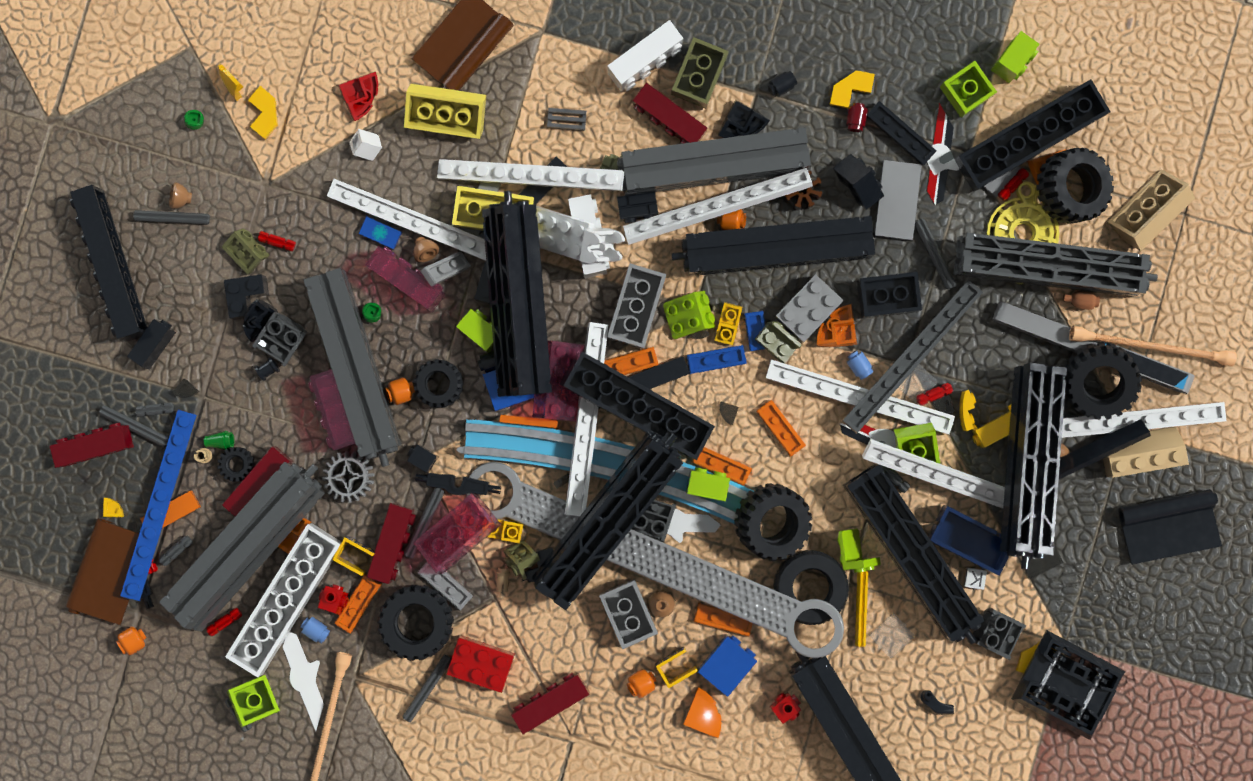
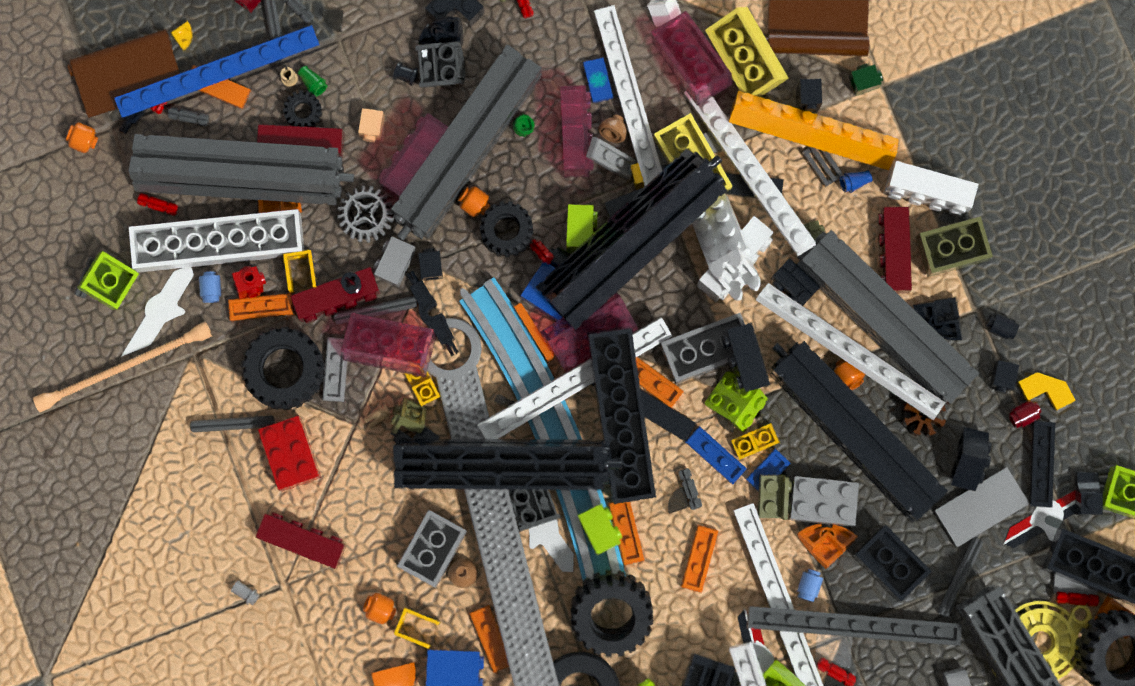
camera: 50 degrees right, 5 degrees down
(285, 422) = (371, 125): none -> light nougat brick
(386, 523) = (351, 276): none -> black bush
(399, 482) = (394, 261): none -> light grey brick
(417, 153) = (691, 58): none -> clear pink brick
(473, 259) = (638, 180): none -> yellow tile
(475, 371) = (541, 251): none -> red axle
(511, 90) = (809, 95): none -> black brick
(529, 39) = (865, 79): none -> dark green brick
(538, 107) = (813, 130): none -> light orange brick
(556, 770) = (245, 593): none -> light grey pin
(596, 107) = (854, 180): none -> blue cone
(666, 286) = (745, 358): none -> black brick
(726, 396) = (689, 489): none -> dark grey axle
(819, 111) = (1004, 376): none -> black brick
(947, 118) = (1088, 494): none -> black arch

